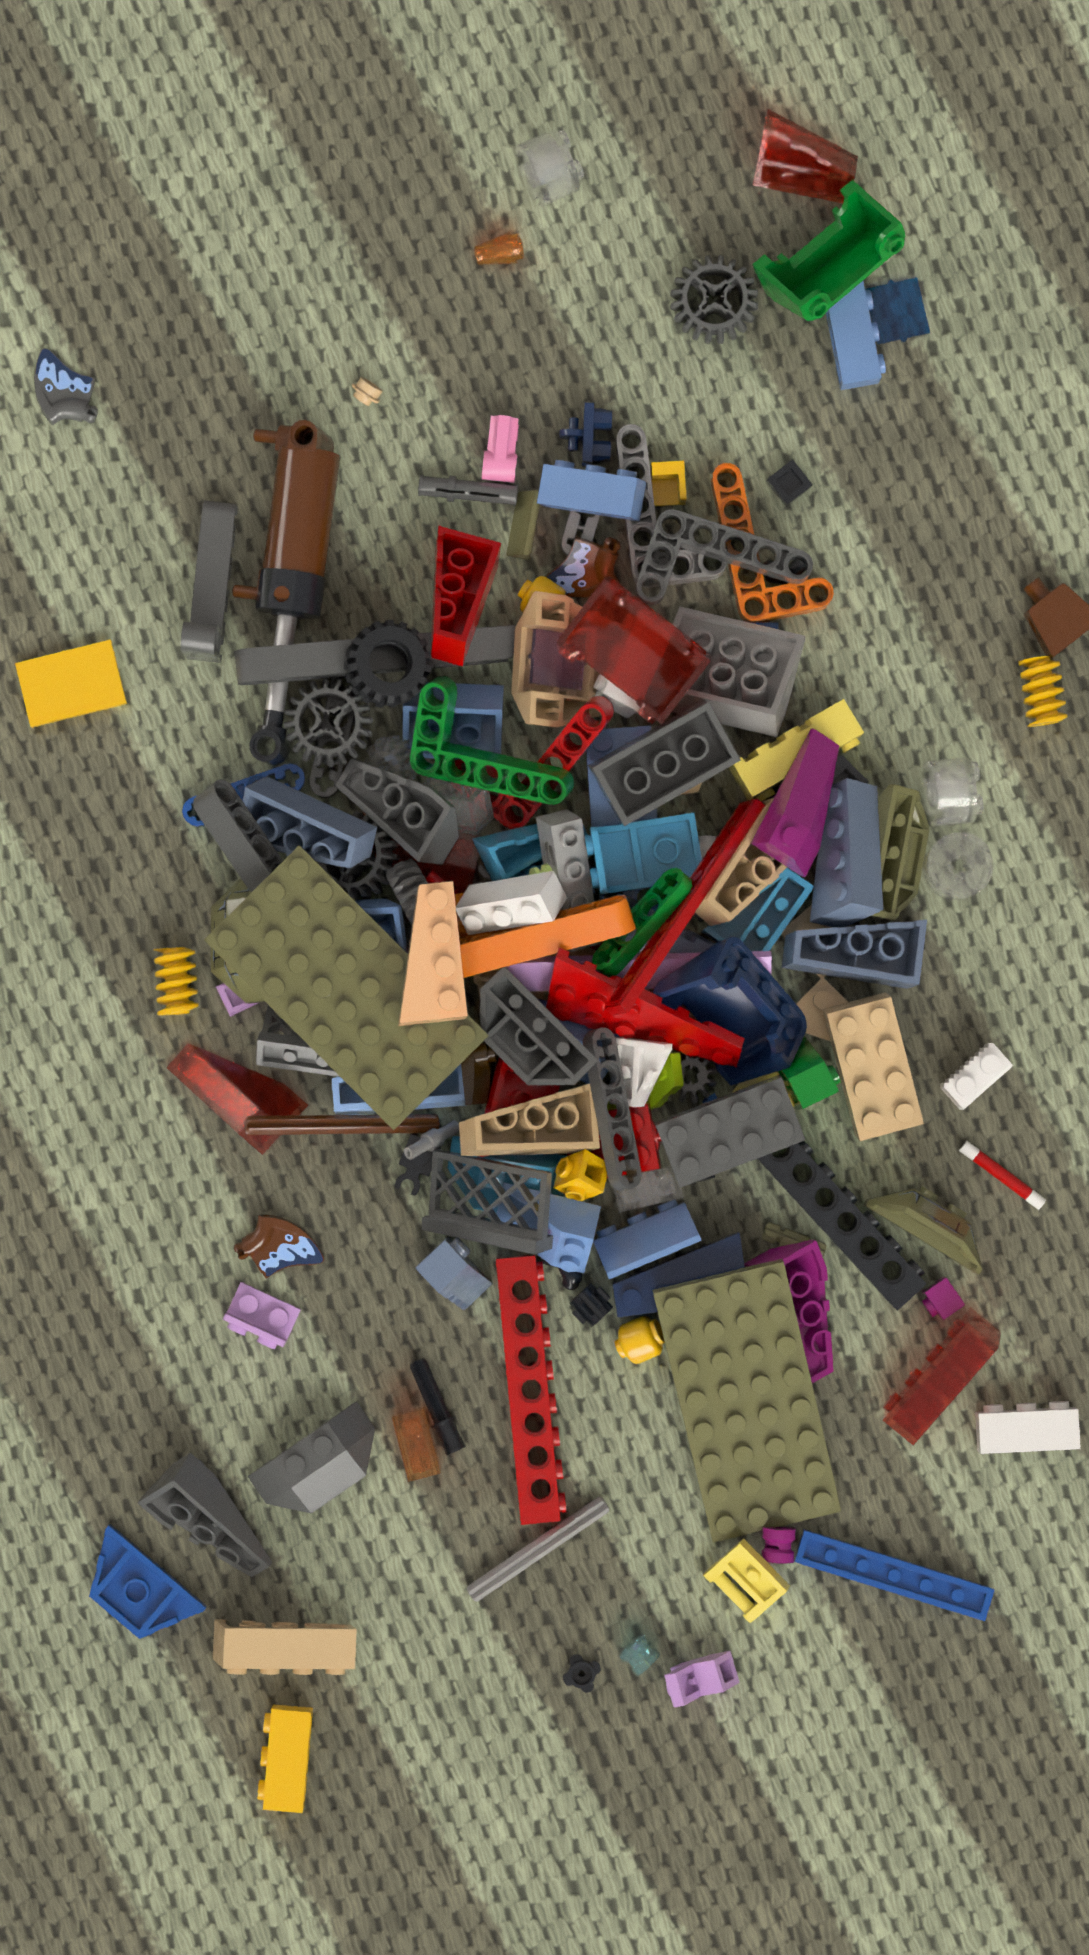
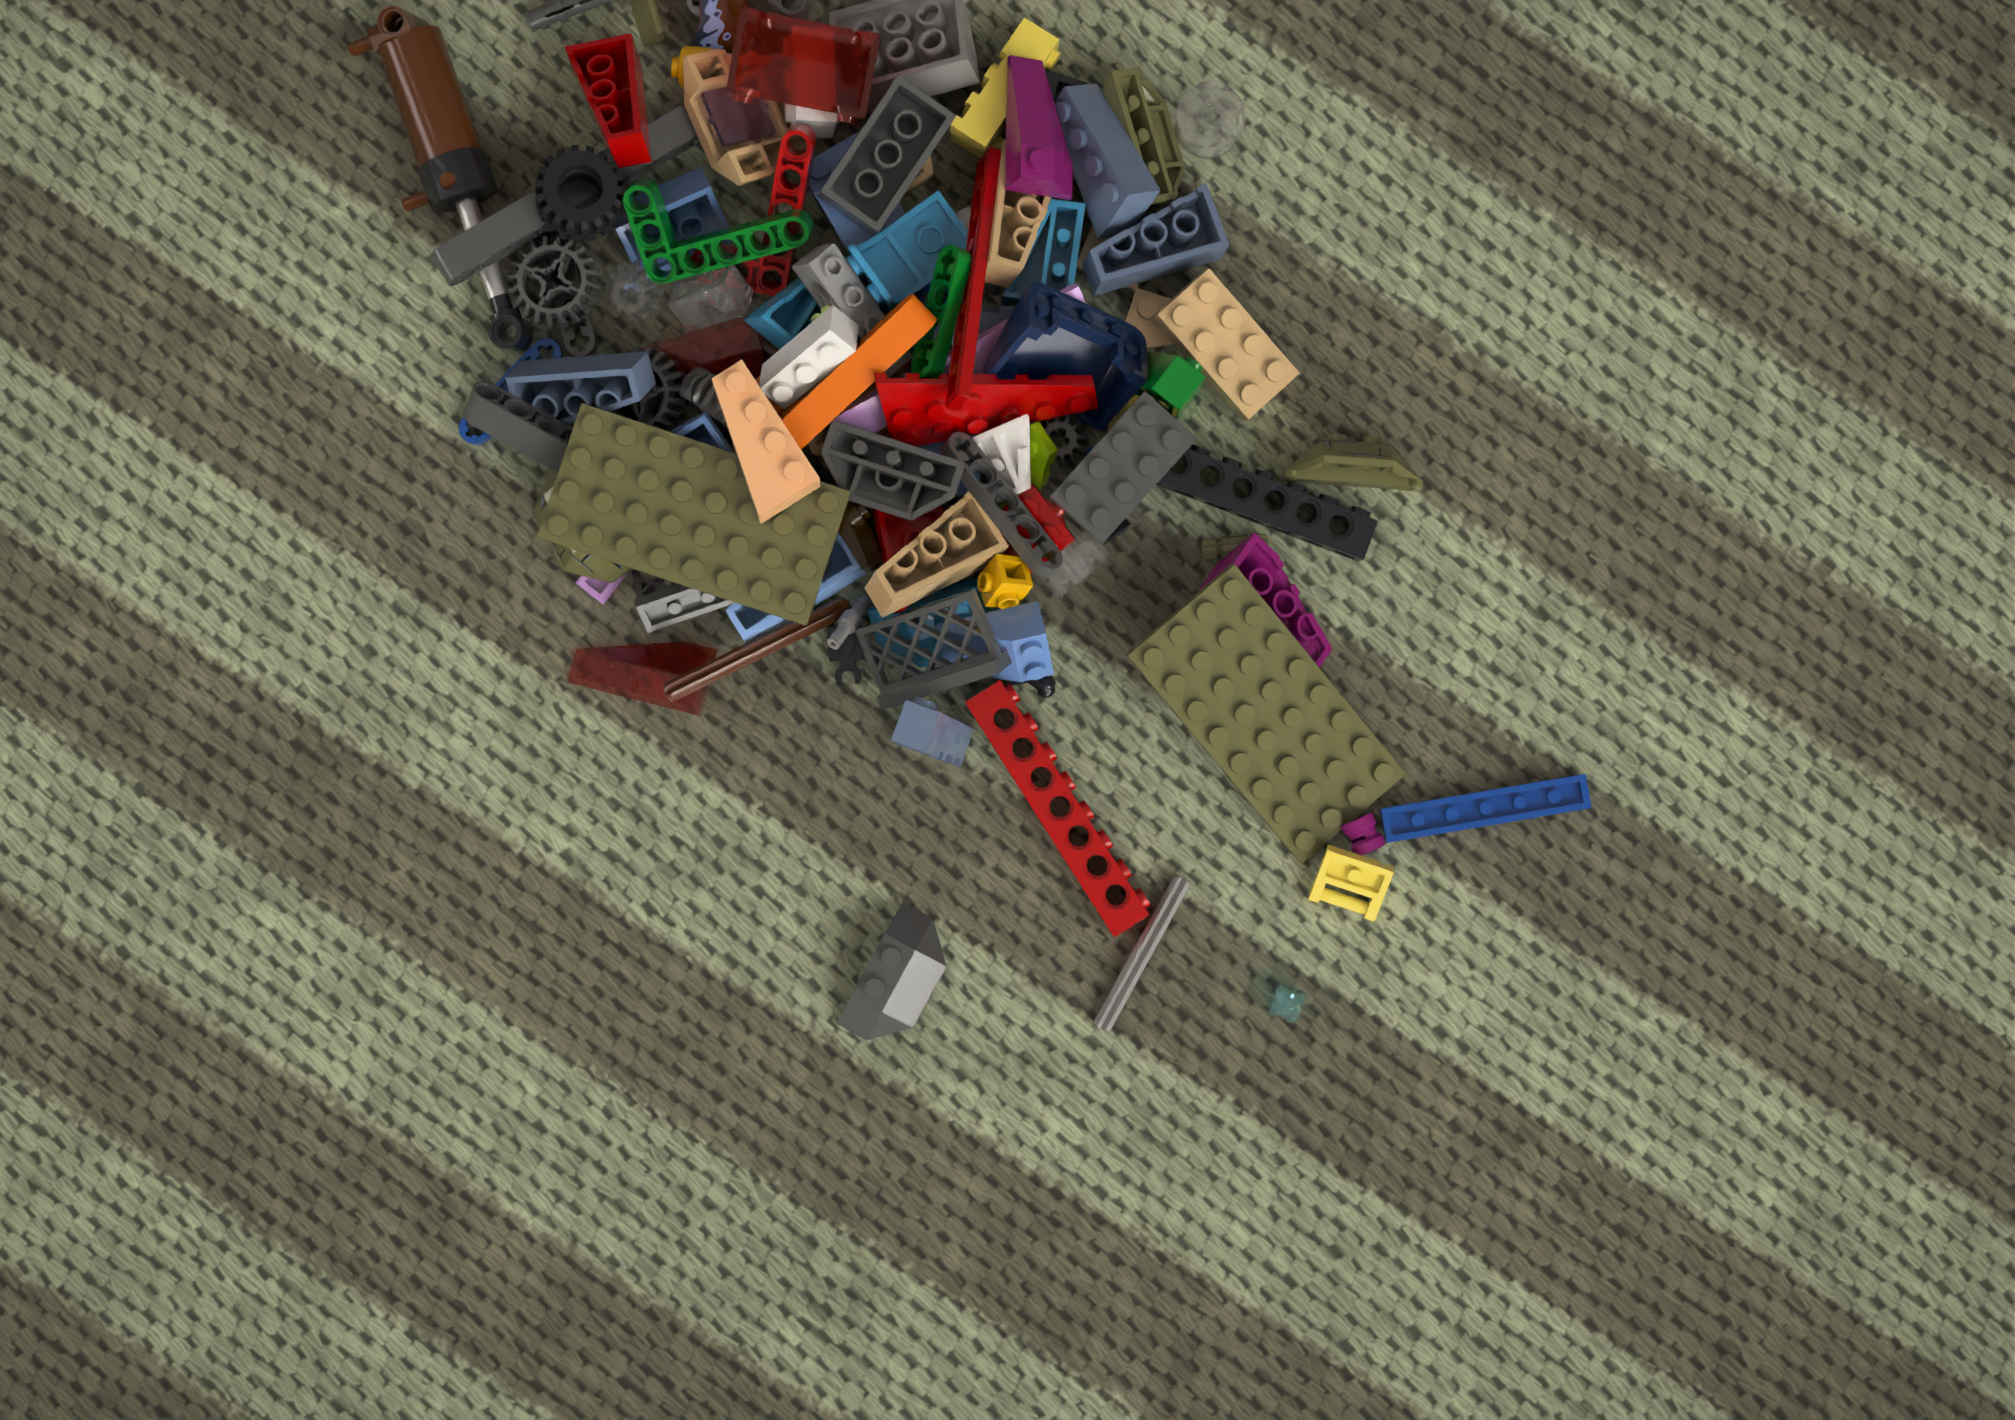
camera: 25 degrees left, 0 degrees up
(62, 391) = (151, 102): dark grey arm -> none
(71, 683) = (296, 369): yellow tile -> none
(138, 1589) = (787, 1180): blue wing -> none
(176, 981) = (533, 596): yellow piece -> none
(197, 1502) = (804, 1072): dark grey wedge -> none
(206, 630) = (393, 254): dark grey beam -> none
(261, 1315) = (773, 866): lavender bracket -> none
(278, 1245) = (755, 794): reddish brown arm -> none
(284, 1647) = (951, 1164): tan wedge -> none
(285, 1758) = (1005, 1268): yellow brick -> none
(404, 809) = (666, 322): dark grey wedge -> none
(416, 1444) = (978, 912): clear orange brick -> none
(443, 1422) = (984, 872): black axle -> none
(584, 1682) = (1234, 1055): black plate -> none
(591, 1305) = (1076, 700): black gear -> none
(635, 1295) = (1112, 667): dark blue wedge -> none
(640, 1339) = (1138, 709): yellow head -> none
(646, 1238) = (1095, 611): medium blue slope -> none
(701, 1677) = (1355, 994): lavender brick -> none
(942, 1299) = (1399, 529): magenta plate -> none
(942, 1377) = (1436, 600): clear red wedge -> none
(952, 791) = (1168, 53): clear brick -> none
(976, 1075) = (1325, 306): white brick -> none
(1002, 1175) = (1396, 387): red bar -> none
(1027, 1428) = (1539, 608): white brick -> none

